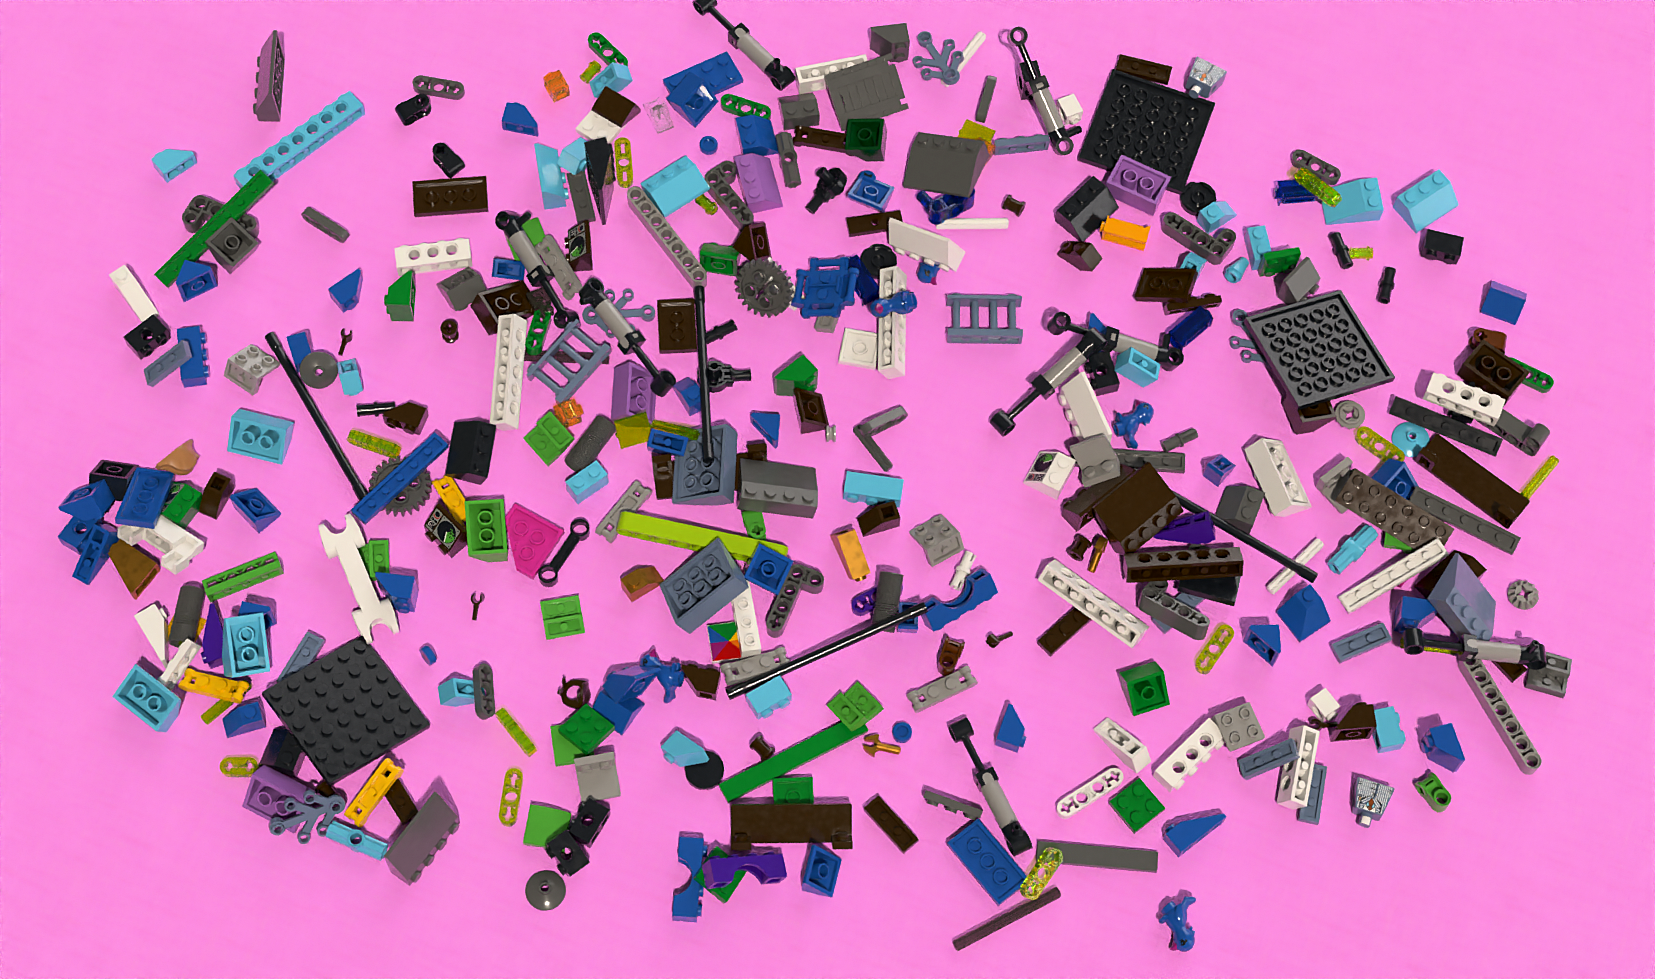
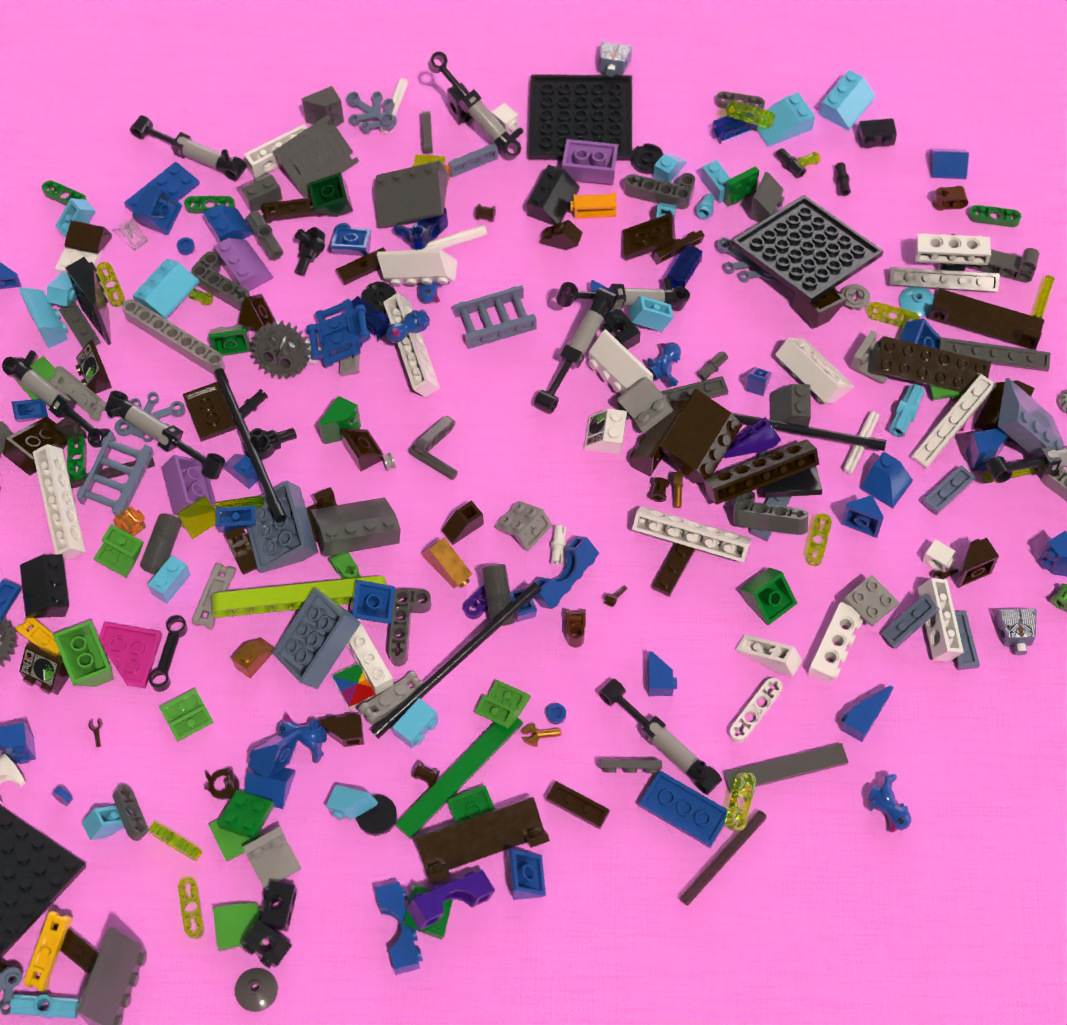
camera: 15 degrees left, 5 degrees down
(556, 86) = (24, 236): clear yellow brick -> none
(593, 68) = (55, 212): clear neon green pin -> none
(768, 426) = (326, 473): blue slope -> none
(859, 349) = (389, 378): white tile -> none
(872, 489) = (445, 498): medium azure brick -> none
(942, 689) = (579, 660): light grey plate -> none
(1136, 805) = (804, 707): green plate -> none
(1144, 69) = (562, 66): dark brown plate -> none
(1388, 733) = (1009, 563): medium azure brick -> none
(1493, 371) = (965, 218): dark brown slope -> none

